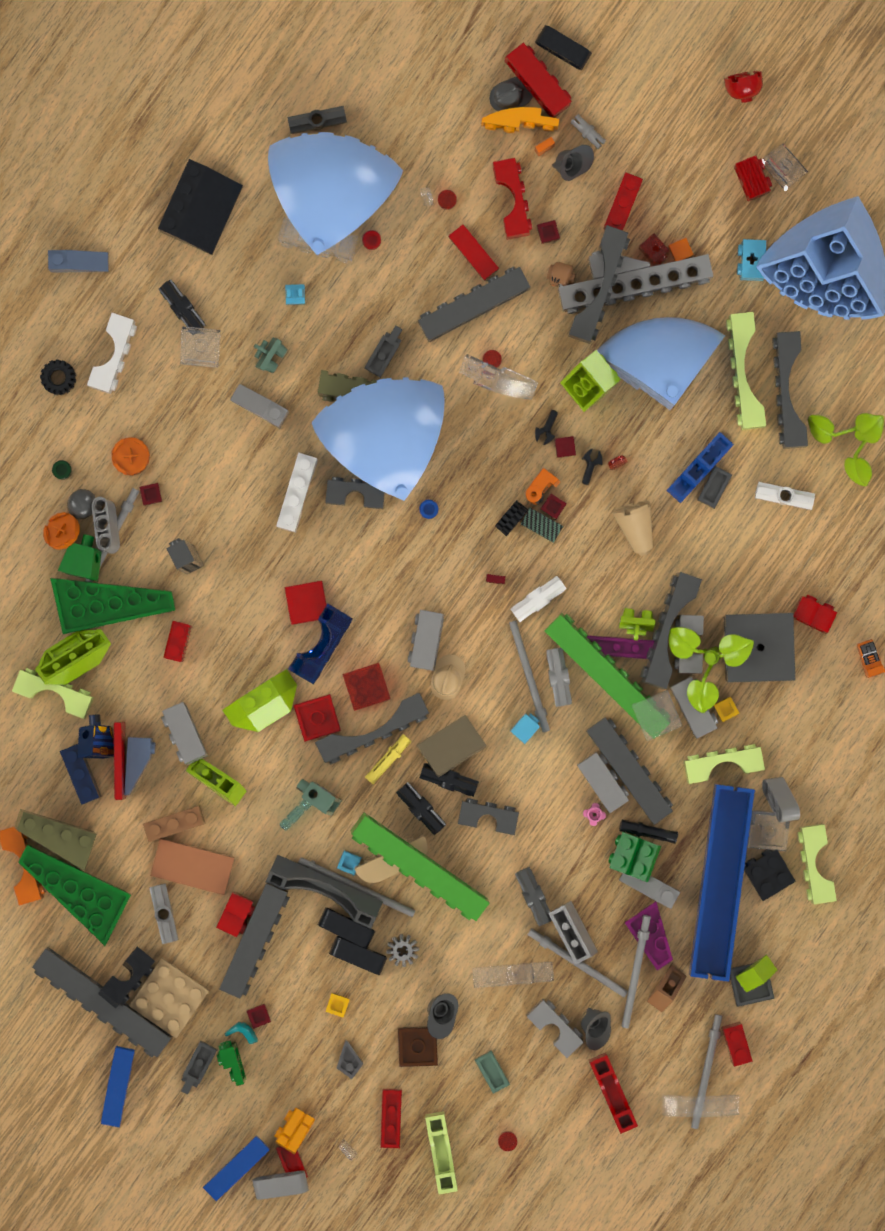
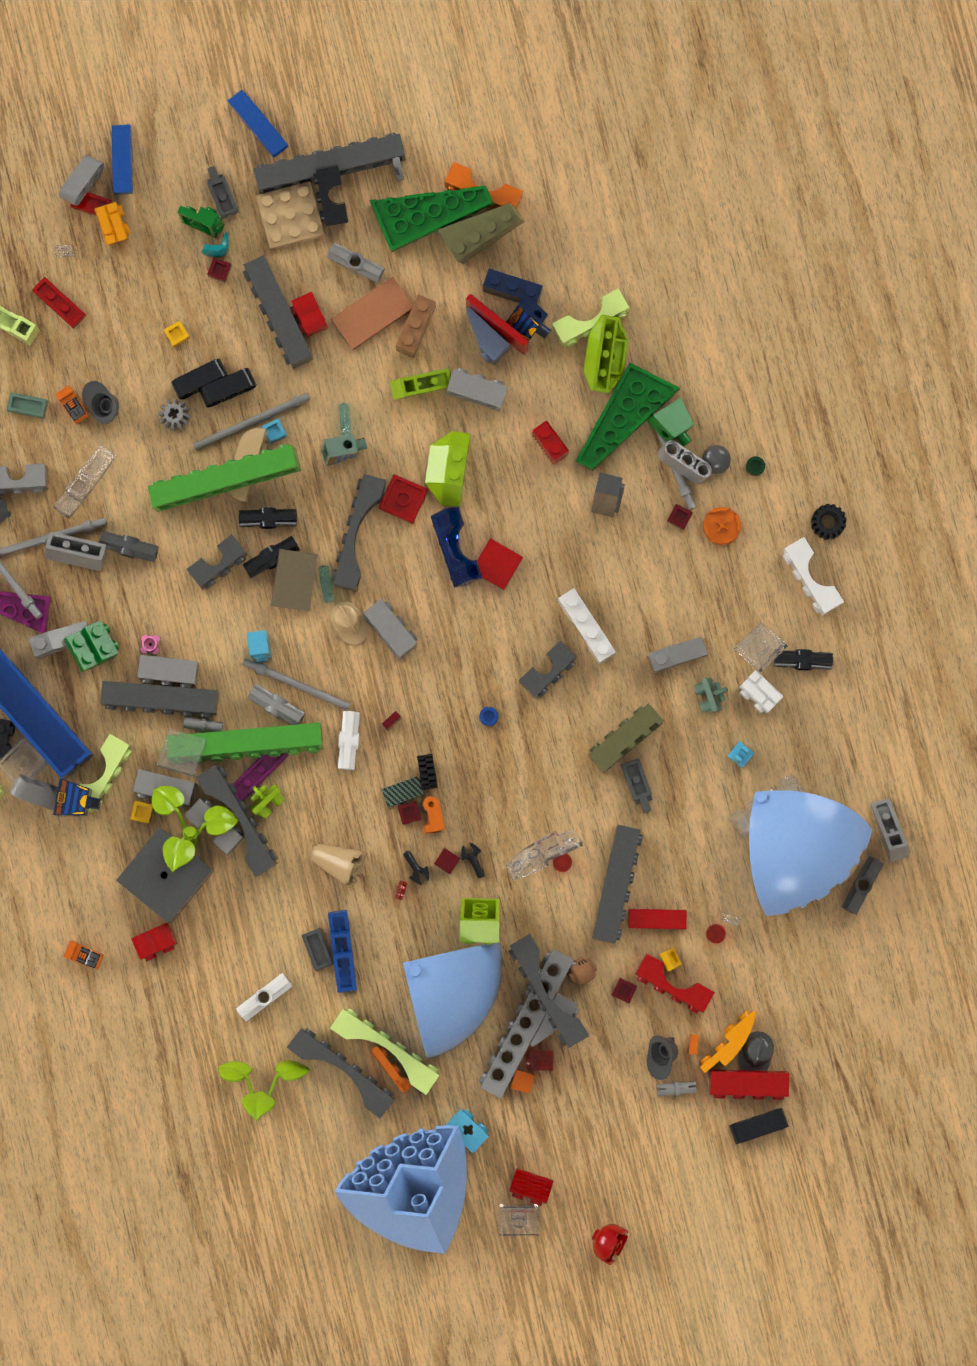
camera: 130 degrees right, 5 degrees down
(61, 531) = (708, 426): orange tile -> none
(61, 945) = (398, 169): none -> light grey tile
(77, 261) = (905, 610): sand blue slope -> none
(200, 207) = (869, 738): black slope -> none
(235, 317) = (760, 692): none -> white brick
(257, 133) = (890, 830): none -> light grey slope
(291, 875) = (235, 410): dark grey arch -> none
(349, 1061) = (127, 307): flat silver piece -> none
(366, 686) = (394, 555): clear red tile -> none
(371, 240) = (733, 848): red tile -> none
(384, 431) = (574, 727): light blue brick -> none
(385, 762) = (327, 533): light yellow pin -> none
(417, 1047) = (94, 365): reddish brown tile -> none
(433, 720) = (326, 584): none -> clear light blue axle
(462, 1036) = (72, 404): none -> leg
(495, 216) = (670, 959): none -> yellow tile
(621, 720) = (202, 724): none -> light grey pin
(623, 201) = (596, 1066): red brick -> none
(640, 829) = (102, 673): black pin -> none
(756, 354) = (391, 1069): none -> orange hinge
(762, 765) = (74, 800): none -> torso

